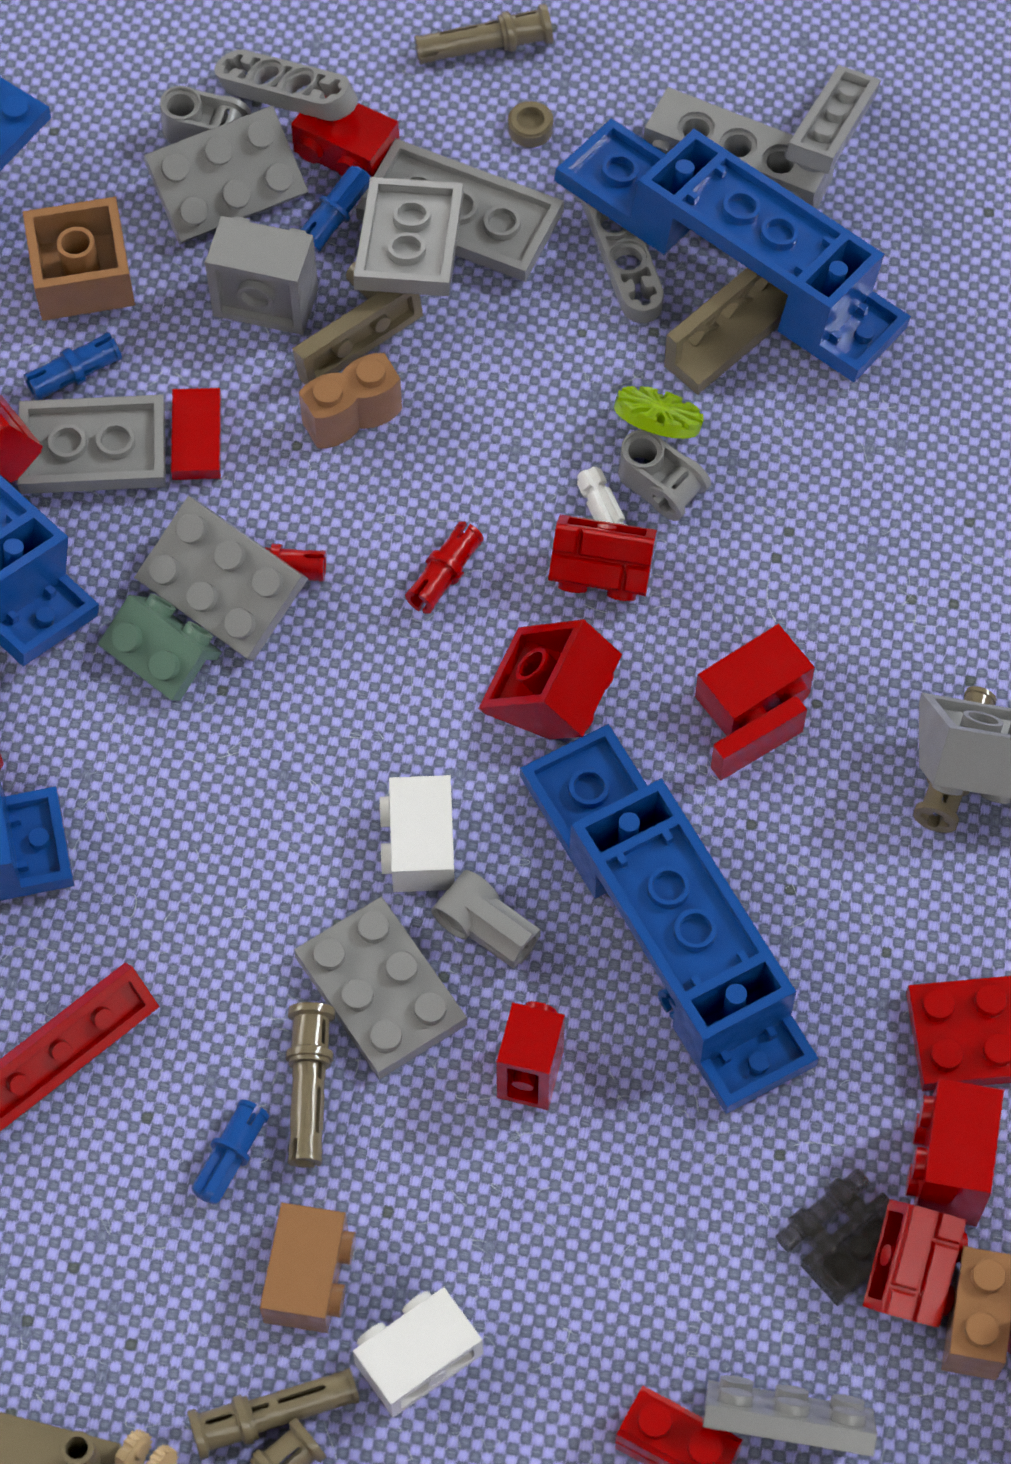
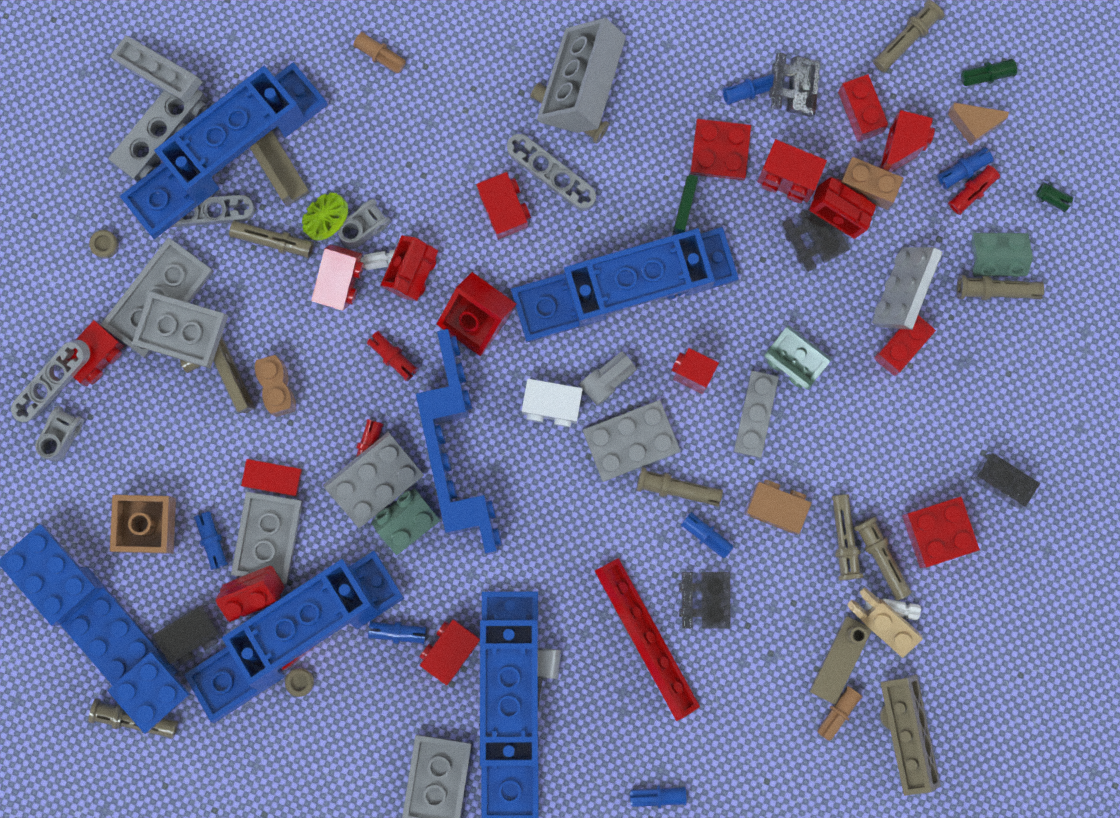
camera: 75 degrees left, 20 degrees up
(110, 1188) = (714, 600): none -> clear smoke plate
(225, 173) = (102, 428): light grey plate -> none
(262, 274) = (182, 419): light grey container -> none
(336, 206) = (140, 369): blue axle -> none
(346, 634) = (445, 406): none -> blue bracket
(417, 1350) = (832, 461): white brick -> none
(478, 1198) = (756, 414): none -> light grey plate
(504, 32) = (36, 244): dark tan pin -> none
(558, 448) = (337, 277): none -> brick
(597, 391) = (282, 242): none -> dark tan pin
(601, 1245) = (797, 358): none -> bracket
(758, 737) = (535, 212): red tile -> none
(837, 974) = (685, 204): none -> dark green tile
(838, 753) = (548, 175): none -> light grey beam
(969, 441) = (379, 52): none -> medium nougat axle

